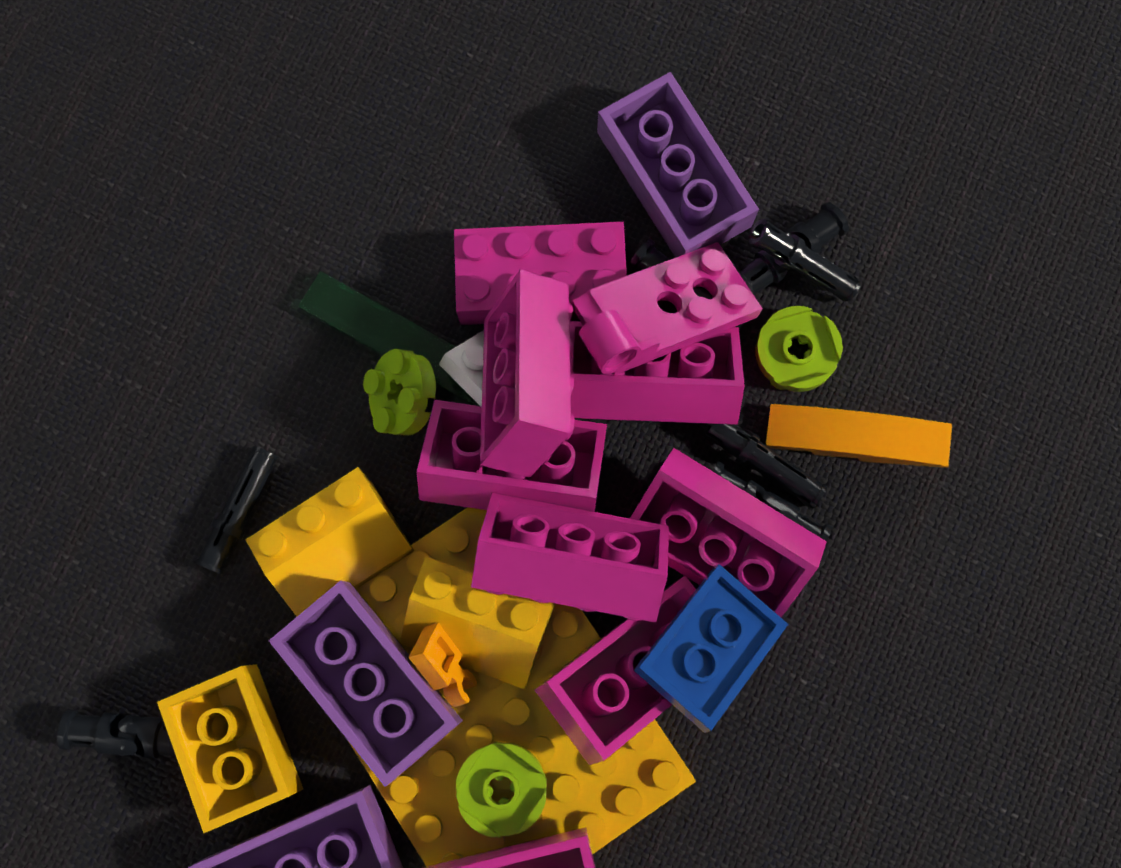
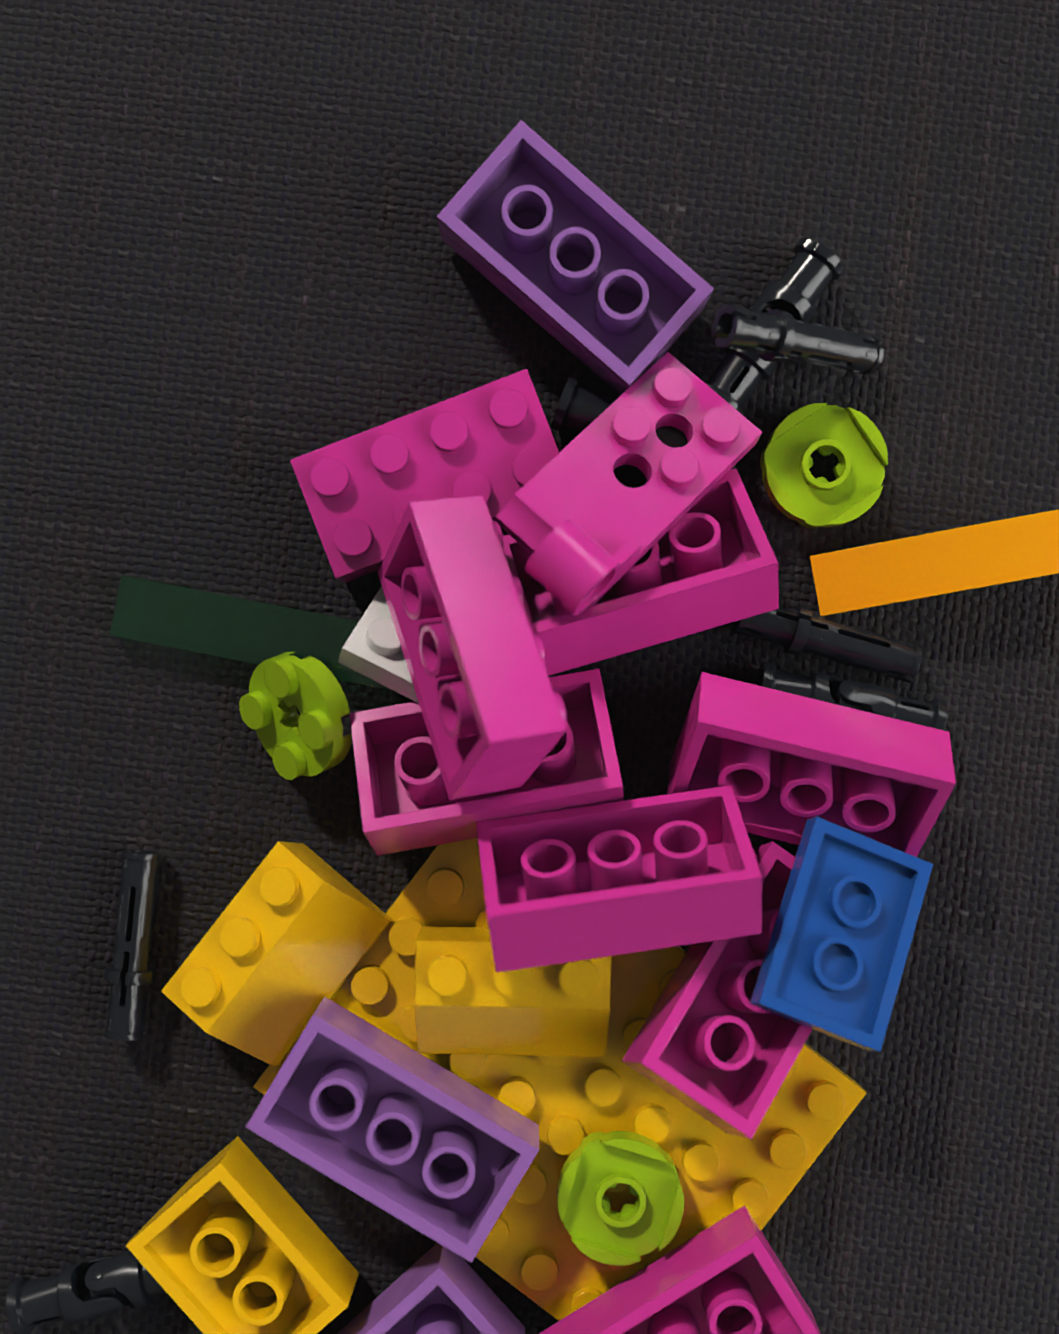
camera: 25 degrees left, 10 degrees up
(438, 663) = (481, 1070): light orange plate -> none

